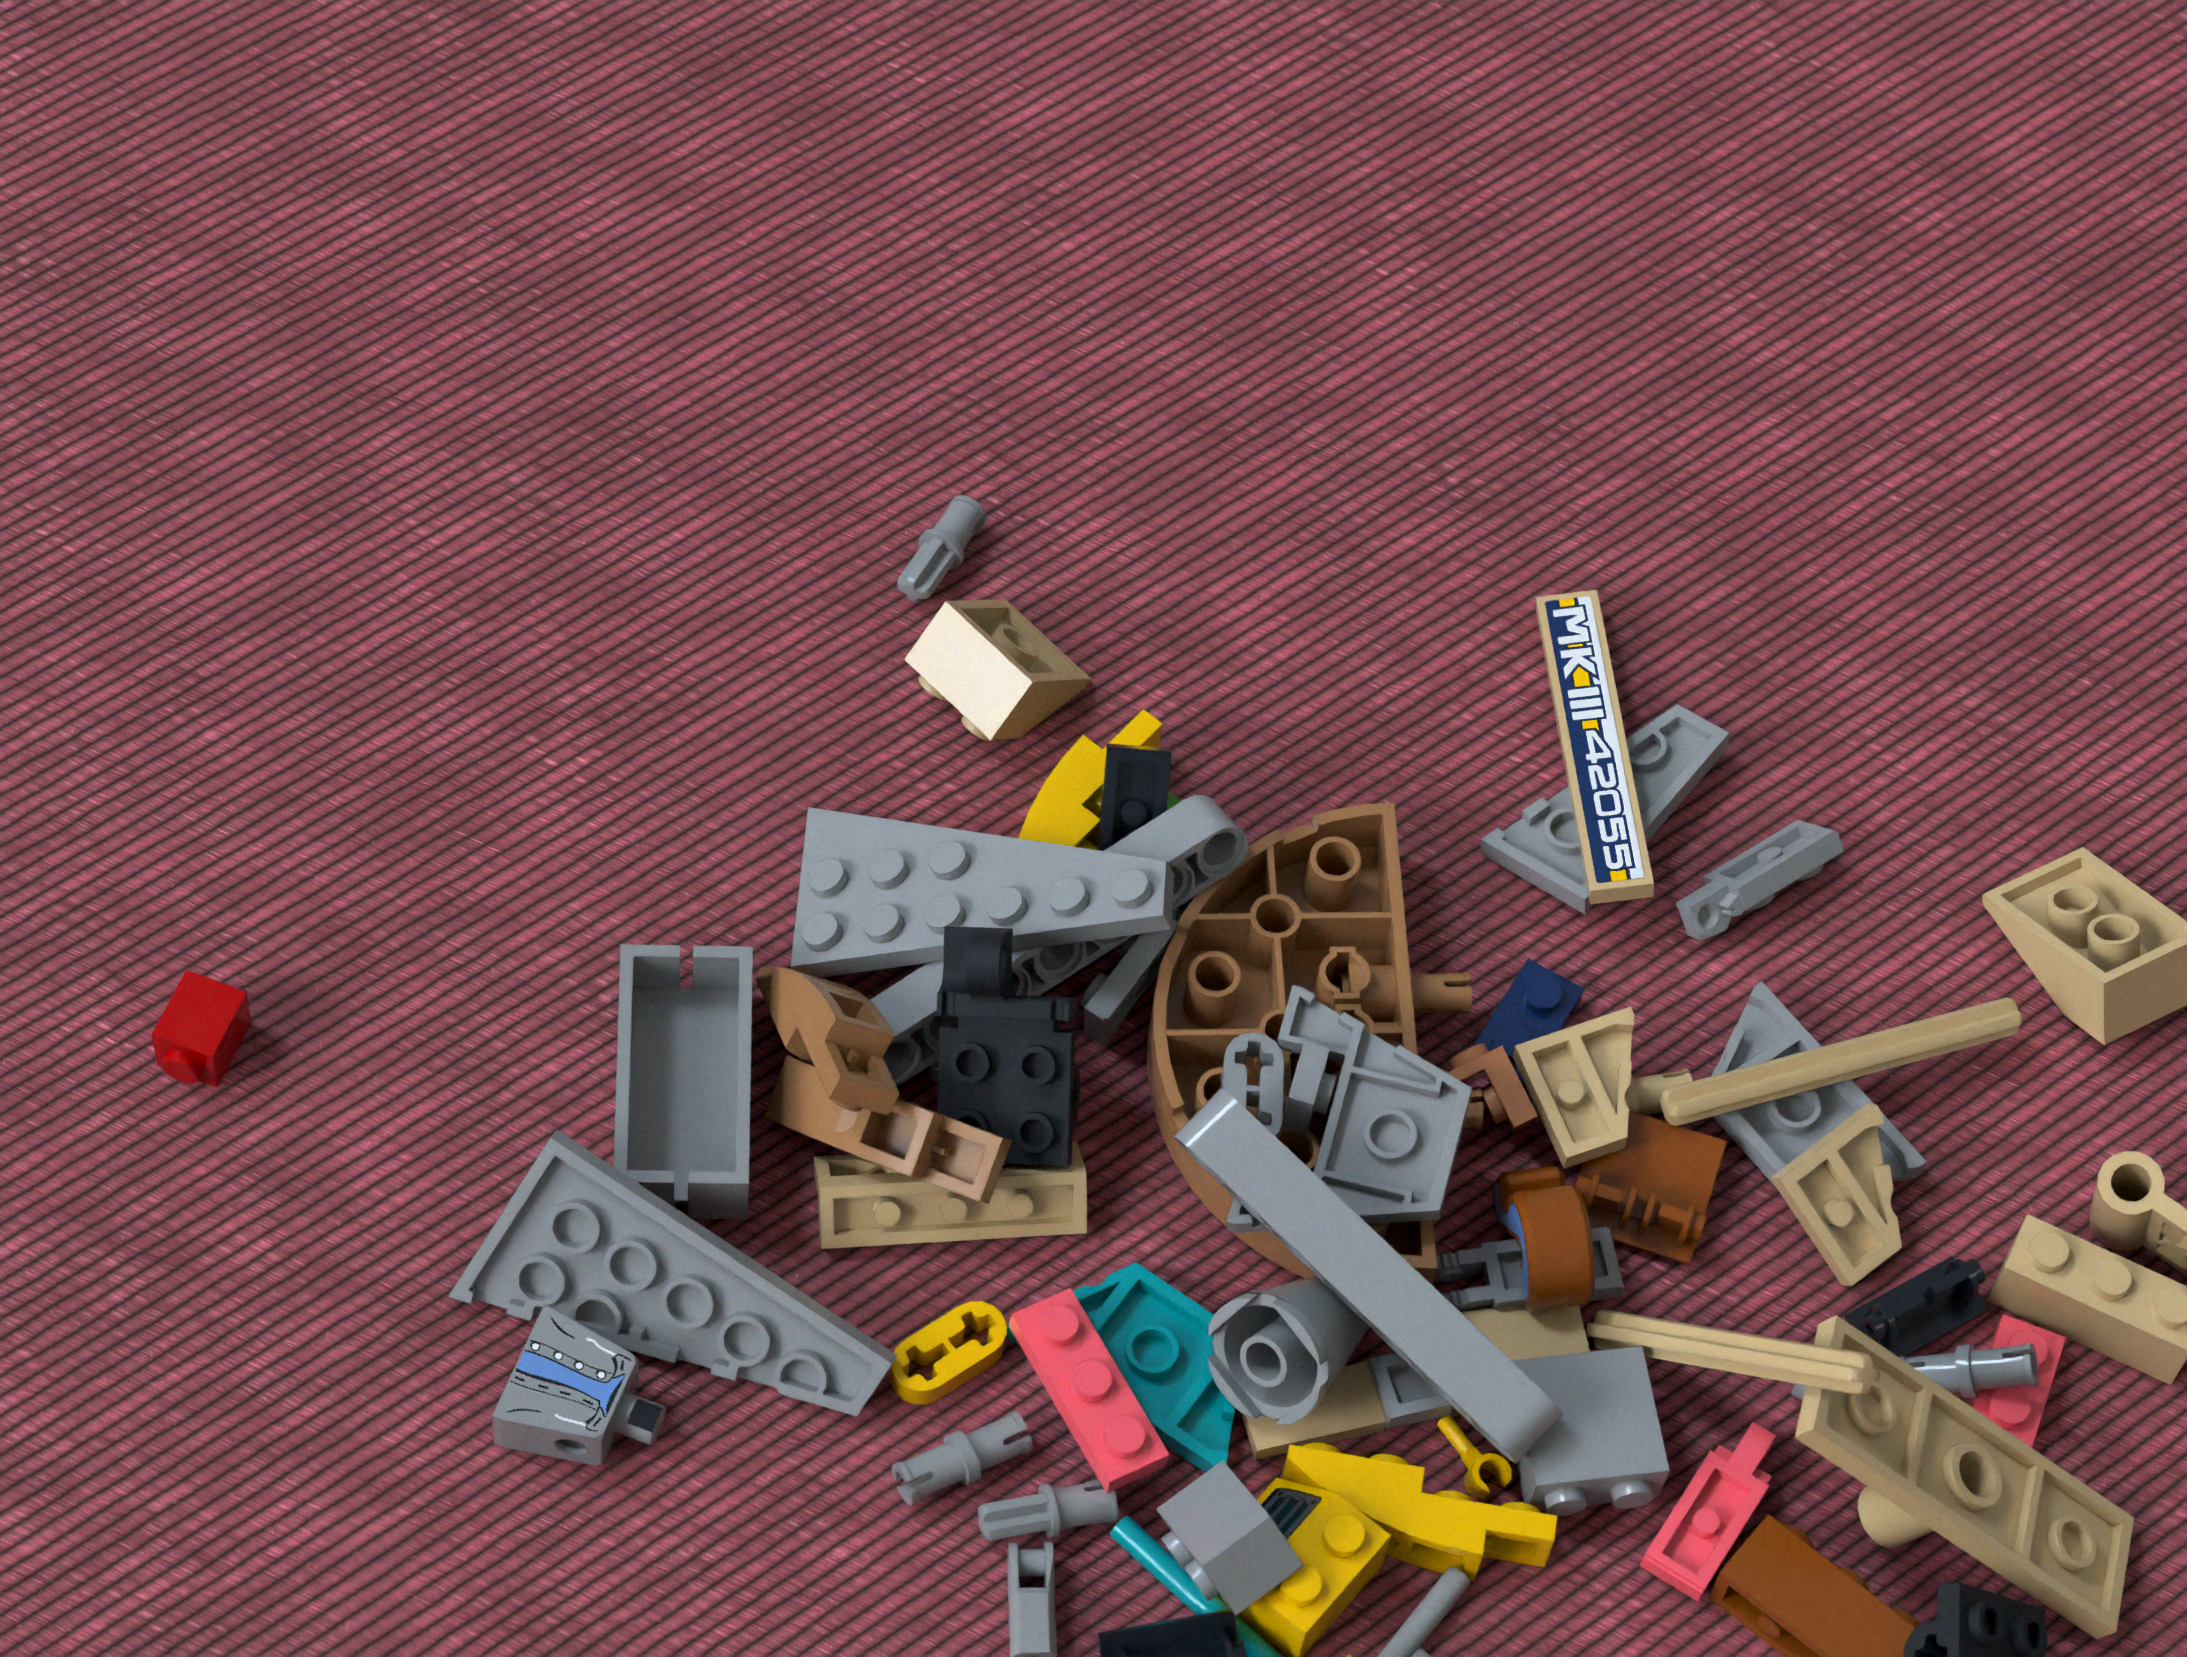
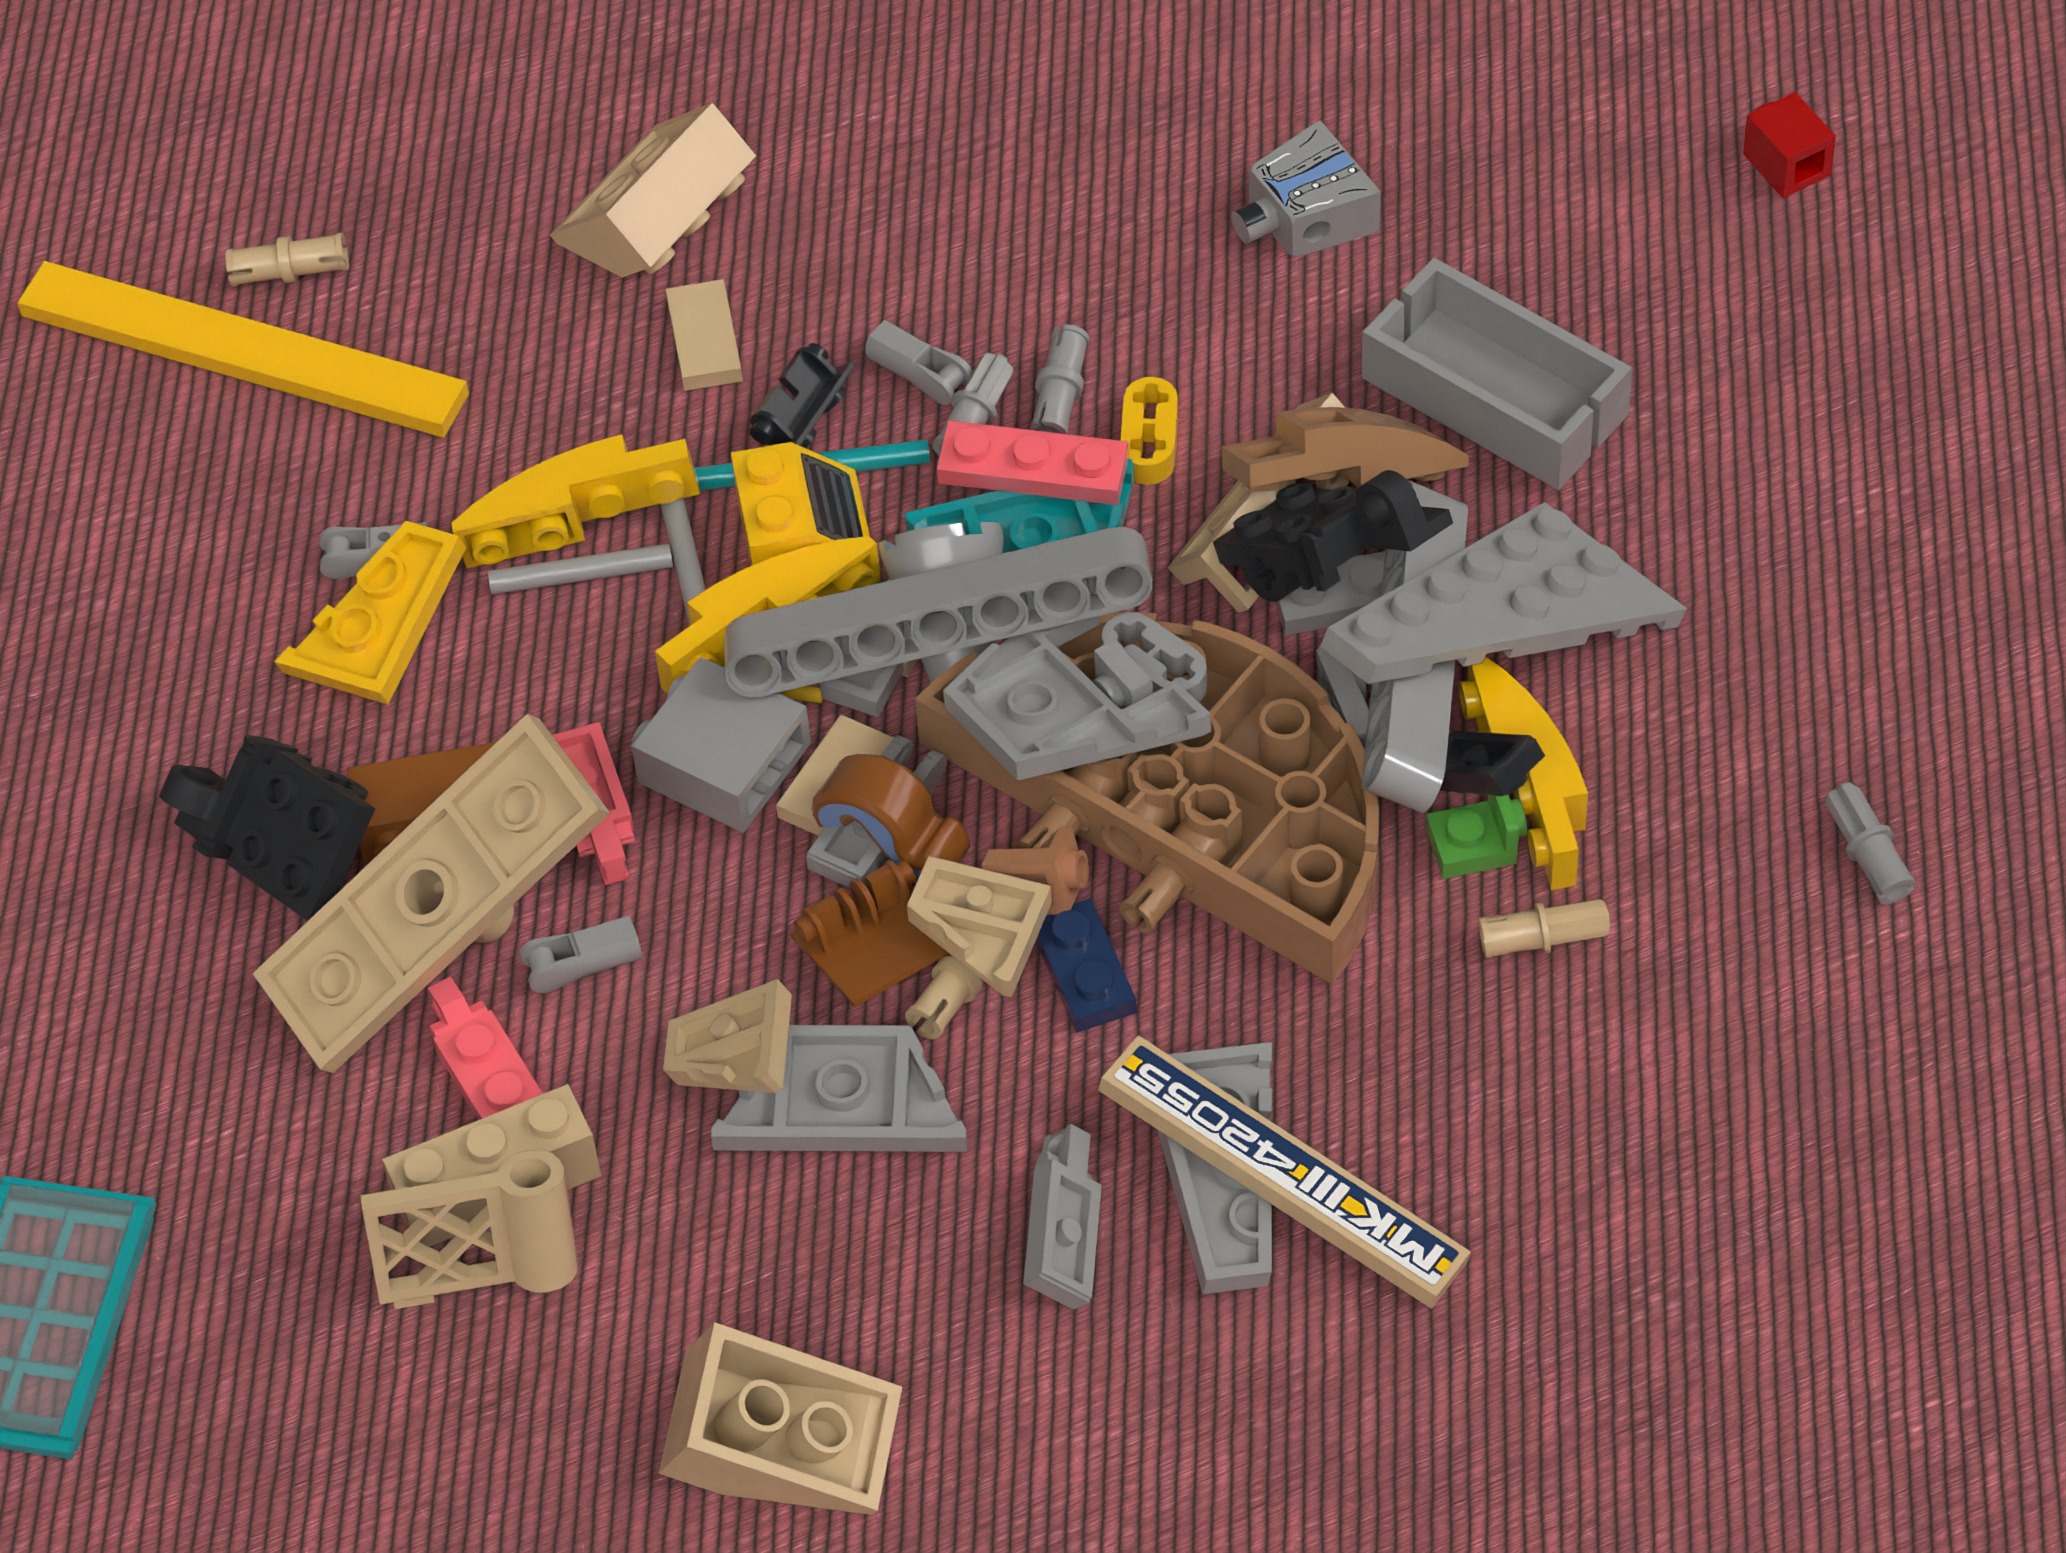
camera: 140 degrees right, 5 degrees down
(662, 1284) = (1336, 271): light grey wing -> none
(836, 1032) = (1441, 438): medium nougat slope -> none
(994, 668) = (1716, 807): tan slope -> none
(1211, 721) = (1543, 927): none -> tan axle
(1226, 1539) = (840, 455): light grey brick -> none
(1736, 1352) = (655, 779): tan axle -> none
(1840, 1061) = (839, 1128): tan axle -> none
(1923, 1307) = (609, 1049): black hinge -> none
(1978, 1370) = (524, 1024): light grey pin -> none

